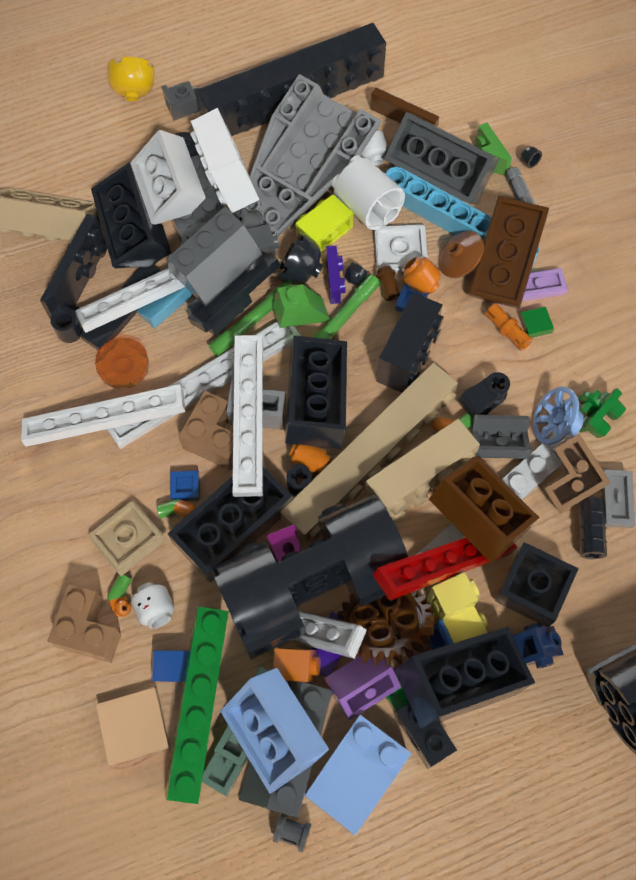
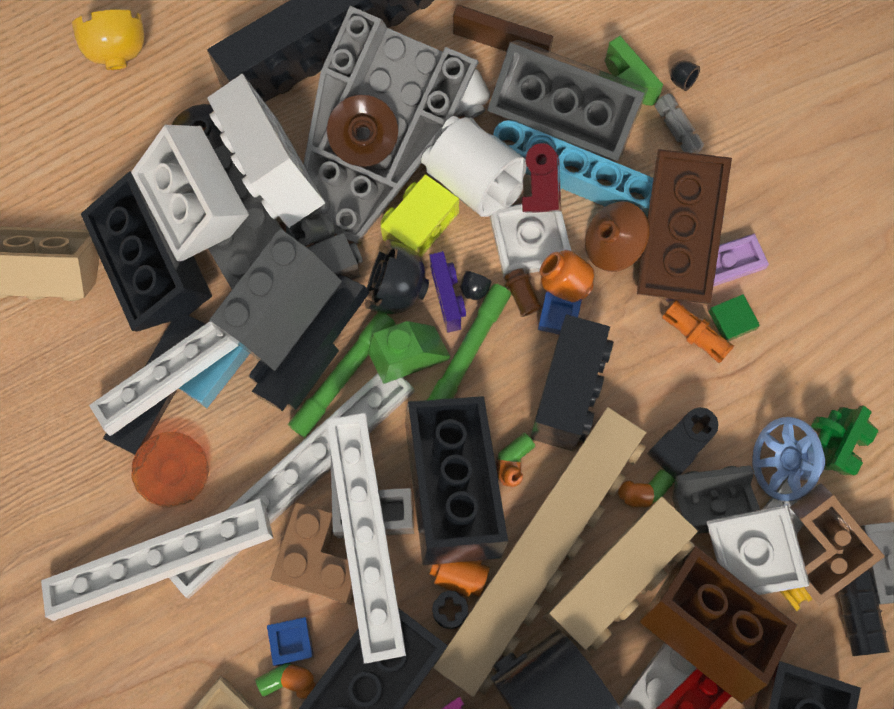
camera: 10 degrees left, 5 degrees up
(72, 277) = (75, 357): black hinge -> none
(181, 100) = (187, 58): dark grey brick -> none
(294, 147) = (362, 112): none -> reddish brown dish
(359, 391) = (510, 460): none -> arm
(415, 209) = (545, 180): none -> dark red leg
(524, 467) = (760, 549): none -> white tile
(544, 505) = (796, 596): none -> yellow bush

